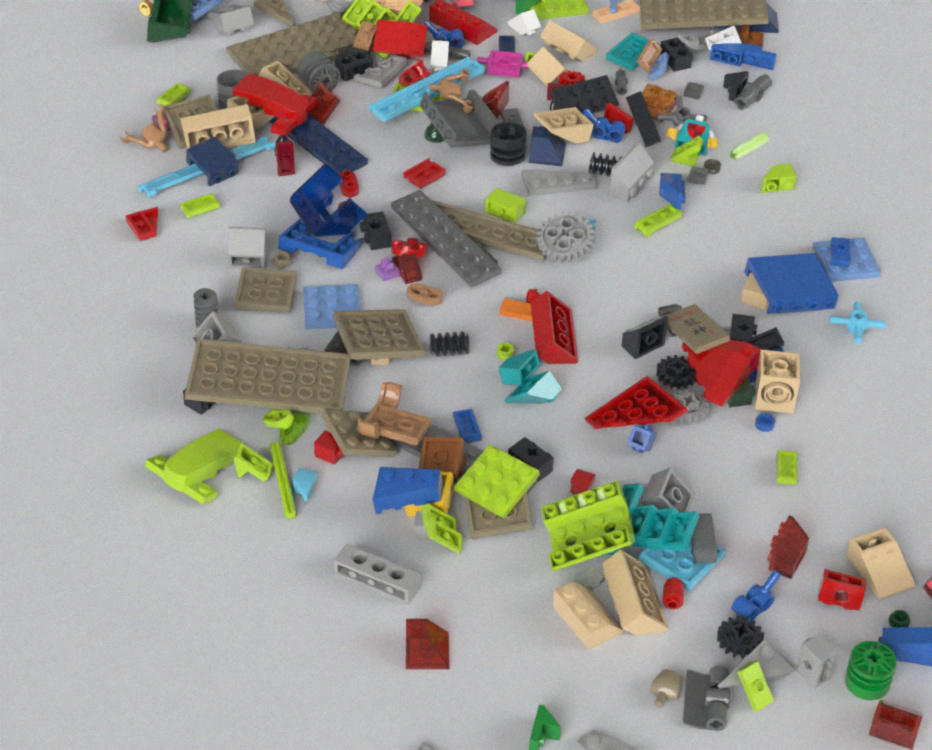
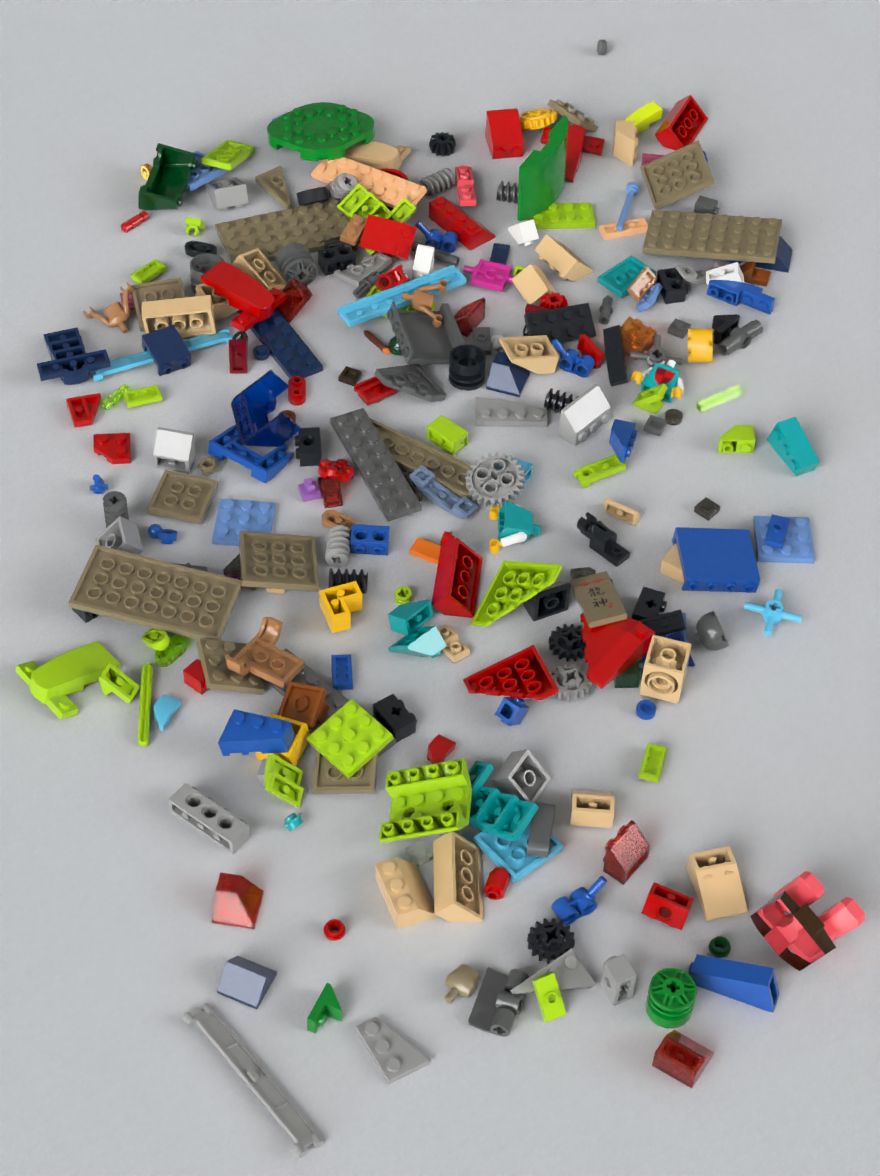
camera: 10 degrees right, 5 degrees up
(118, 179) = (69, 358): none -> dark blue slope
(146, 53) = (134, 221): none -> red axle
(172, 209) = (114, 397): none -> clear neon green axle
(180, 290) = (99, 486): none -> blue plate
(184, 253) = (114, 447): none -> red plate
(206, 48) = (194, 224): none -> lime tile
(212, 70) = (196, 248): none -> black plate
(259, 326) = (167, 536): none -> blue plate
(304, 154) = (261, 352): none -> dark blue plate
(315, 11) = (312, 196): none -> black tyre
(389, 83) = (366, 285): none -> dark grey axle
(396, 165) = (350, 376): none -> dark brown tile
(422, 138) = (384, 348): none -> copper piece
(430, 314) = (338, 546): none -> light grey piece
(448, 365) = (339, 603): none -> yellow brick
(456, 717) = (245, 981): none -> slope
(459, 162) = (411, 380): none -> dark grey plate
(459, 305) = (370, 539): none -> blue brick
(460, 565) = (293, 821): none -> teal plate
(497, 247) = (440, 495): none -> sand blue slope
(526, 119) = (496, 344): none -> light grey bush
(529, 657) = (334, 924): none -> red plate
(569, 392) = (455, 649): none -> tan slope
(593, 275) = (514, 525): none -> teal torso
(612, 326) = (512, 586): none -> lime slope
(680, 278) = (602, 540): none -> black plate
(690, 252) = (621, 512): none -> tan slope
(720, 101) = (700, 345): none -> yellow brick
(743, 514) = (592, 808): none -> tan slope
(767, 241) = (707, 508): none -> clear smoke plate
(808, 345) = (710, 632): none -> dark grey cylinder
(832, 178) = (793, 446): none -> teal wedge

